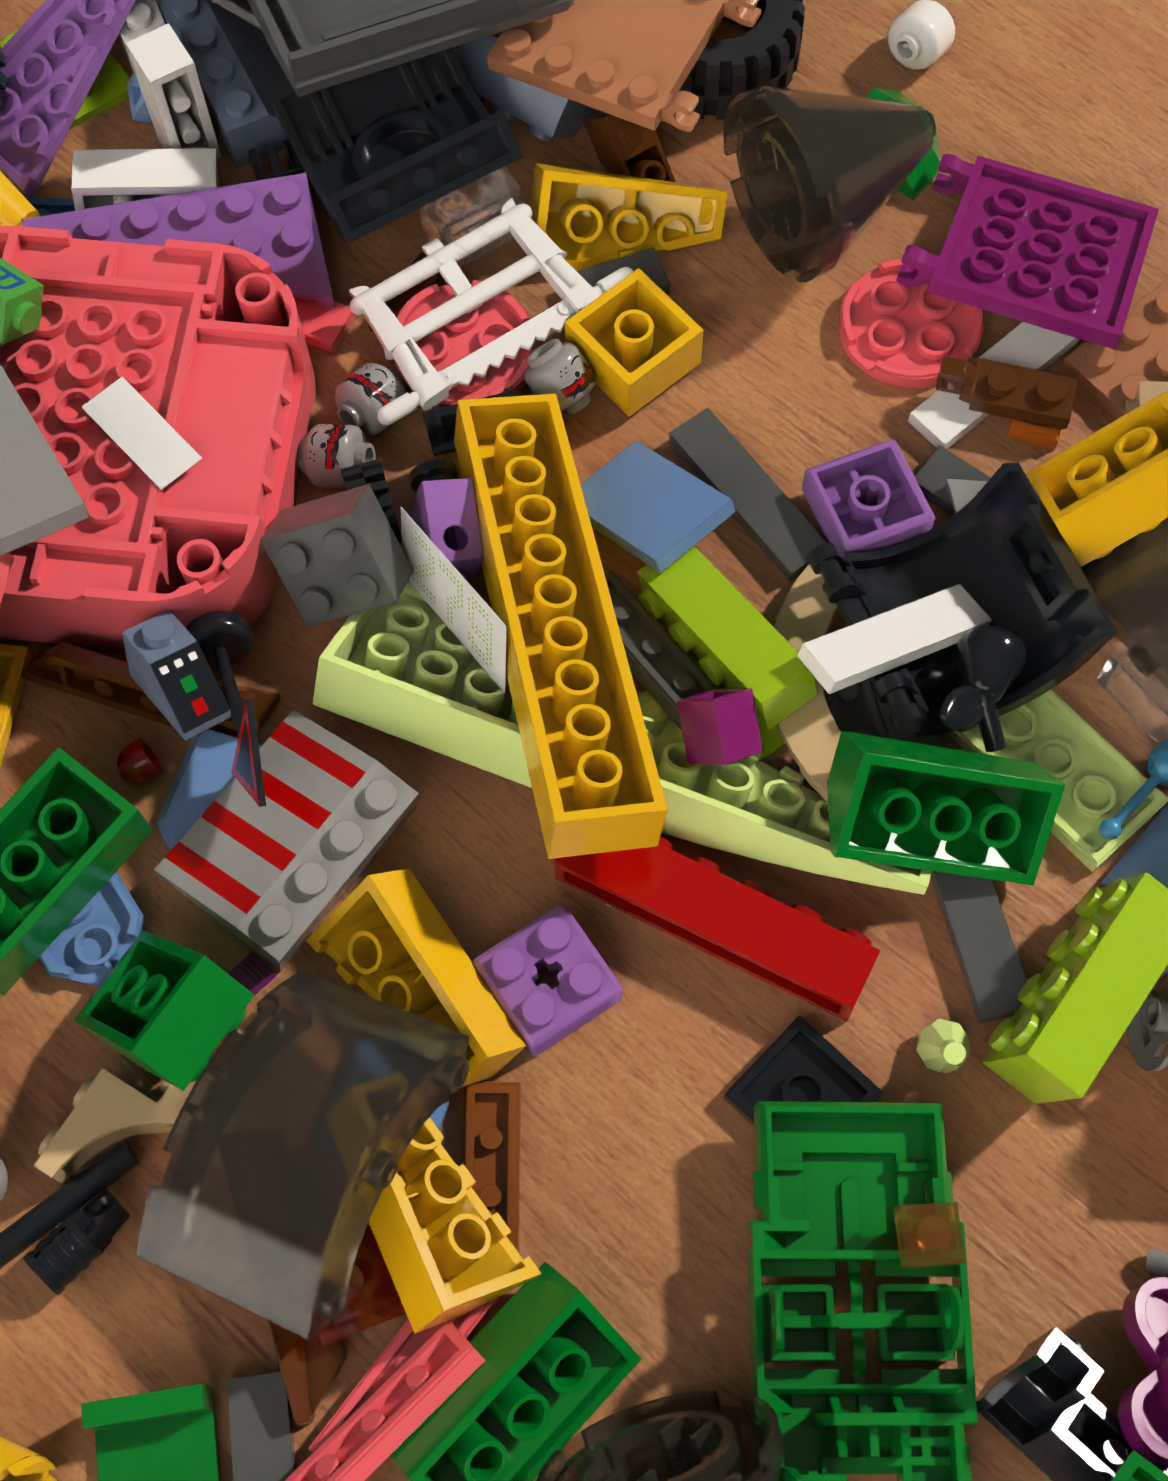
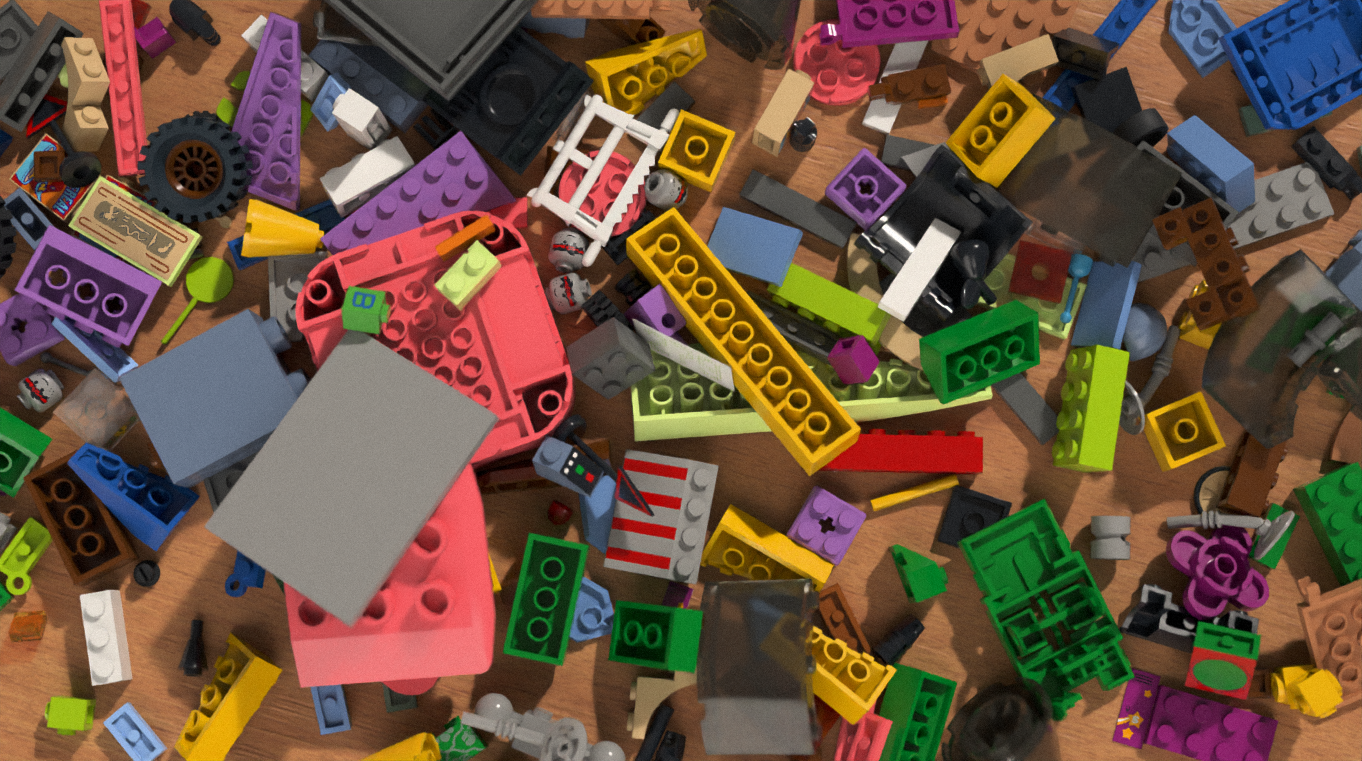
camera: 30 degrees left, 15 degrees up
(141, 433) = (479, 346): white sticker -> none
(179, 319) = (468, 275): none -> yellowish green brick
(207, 271) = (465, 238): none -> orange tile
(574, 1229) = (898, 640): none -> black hinge
(663, 1133) = (918, 574): none -> green slope
(723, 997) = (914, 492): none -> yellow bar
(791, 339) = (783, 111): none -> tan brick
(809, 387) = (803, 135): none -> black hinge
(929, 1235) = (1067, 566): clear orange plate -> none
(943, 1046) = (1031, 466): yellowish green rock -> none
(1032, 1228) = (1110, 537): none -> light grey wheel
(1098, 710) = (1053, 260): none -> clear red piece

